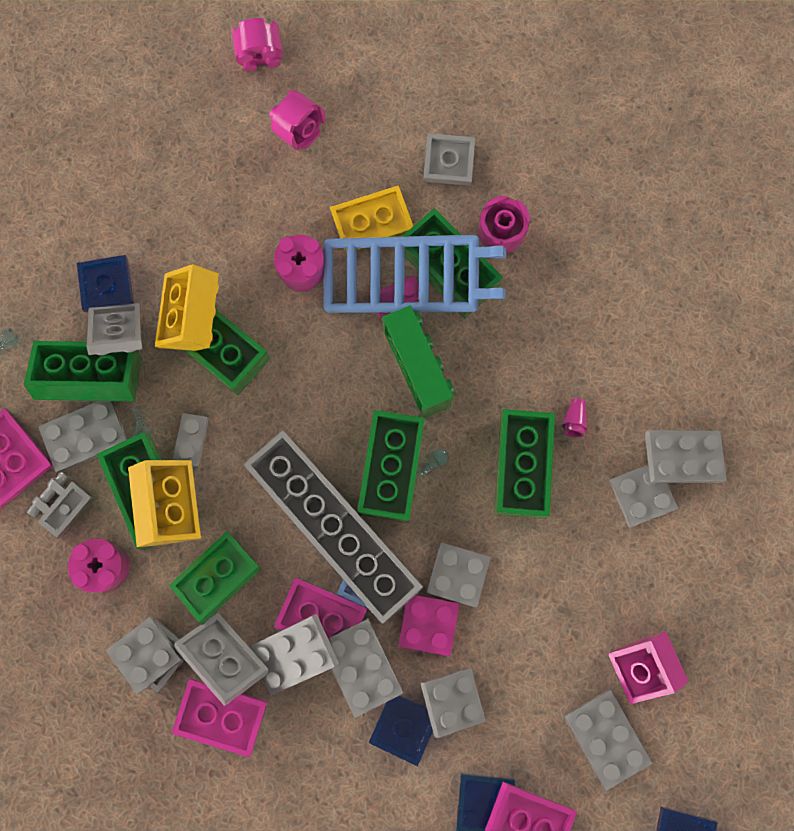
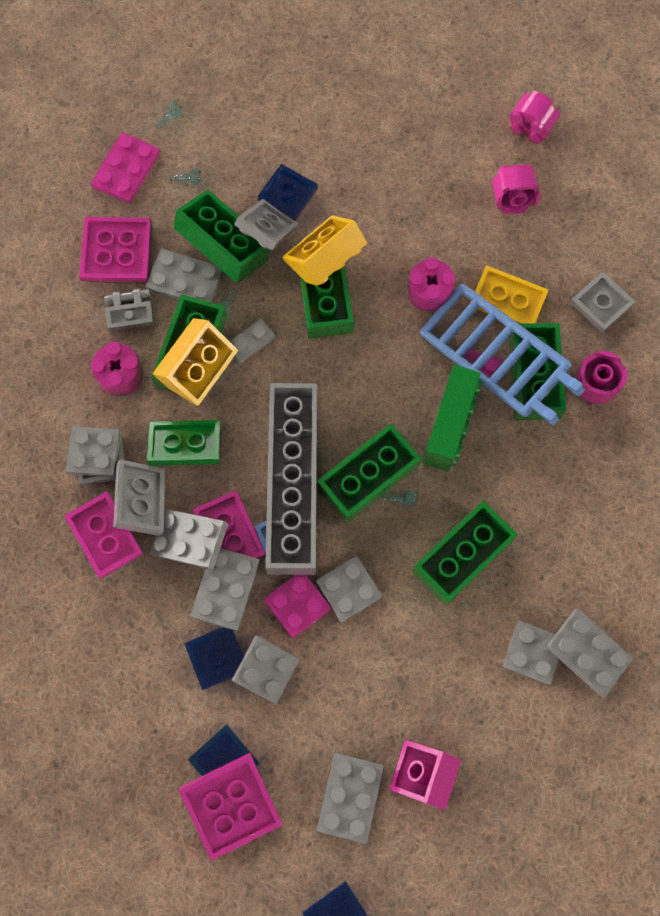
camera: 40 degrees right, 5 degrees down
(575, 420) = (531, 556): dark pink cone -> none

